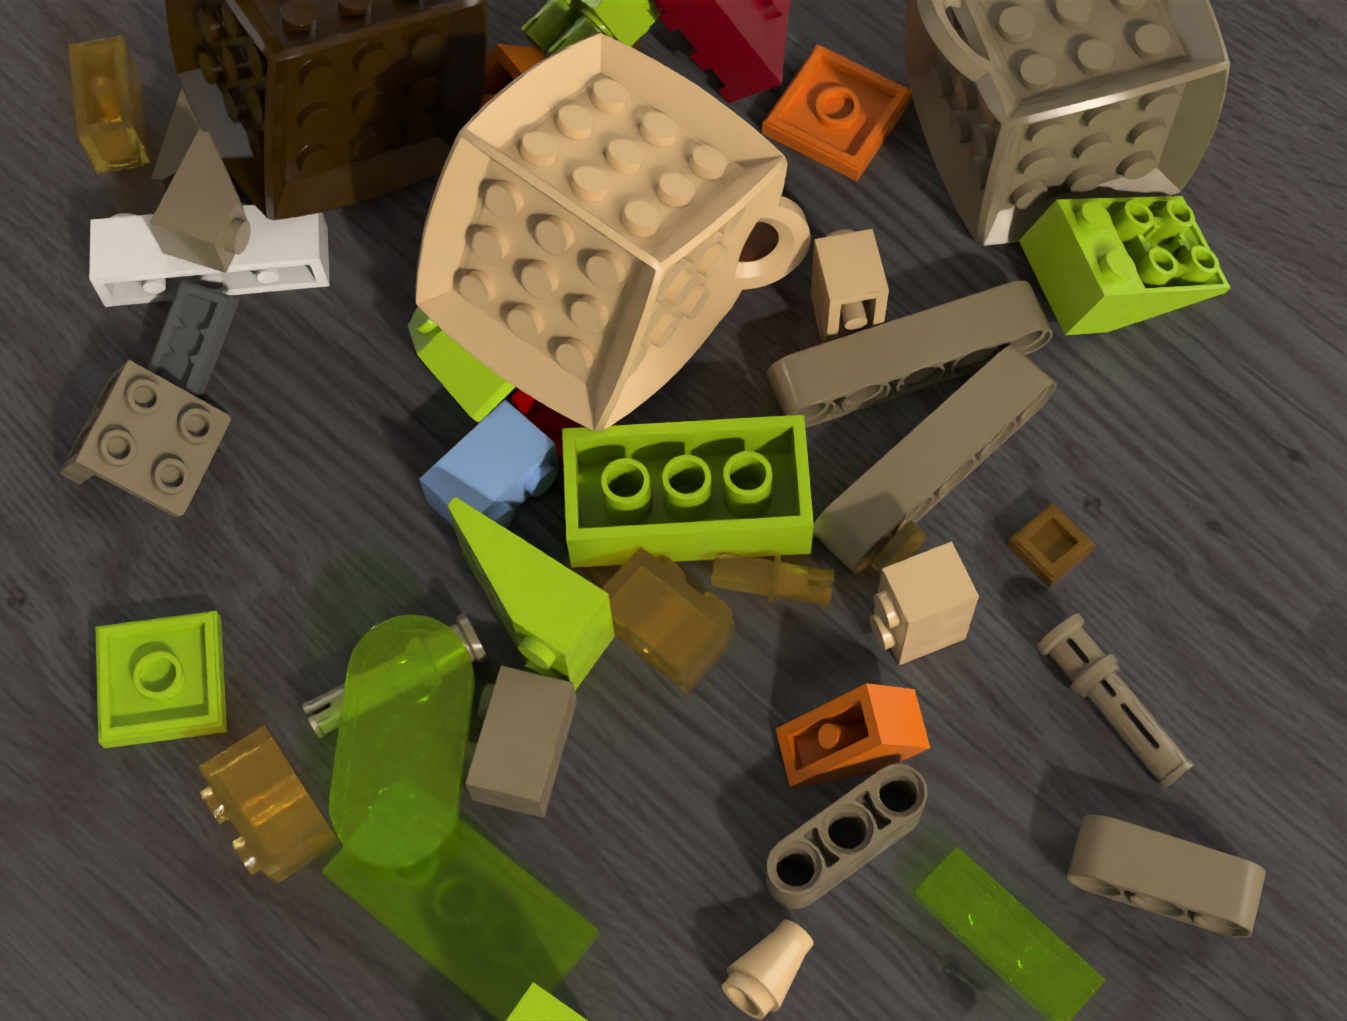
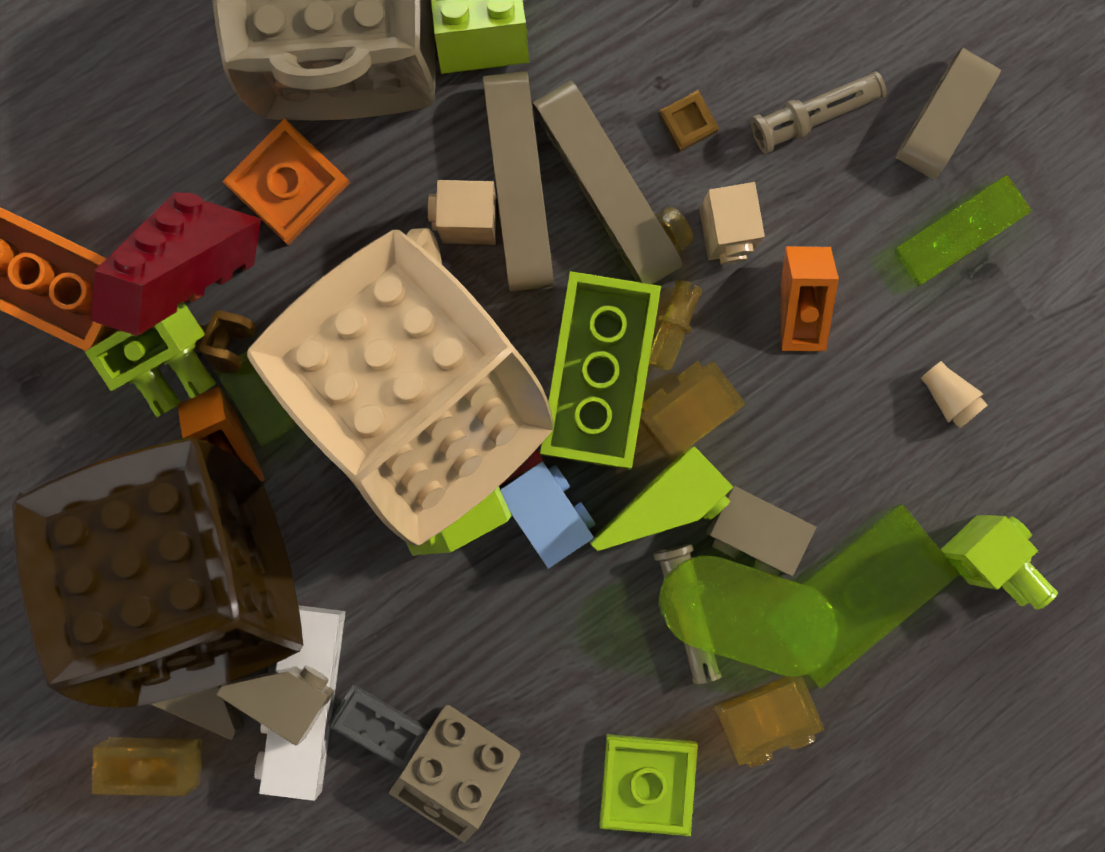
camera: 85 degrees left, 20 degrees up
(858, 809) = (879, 298): dark tan beam -> none

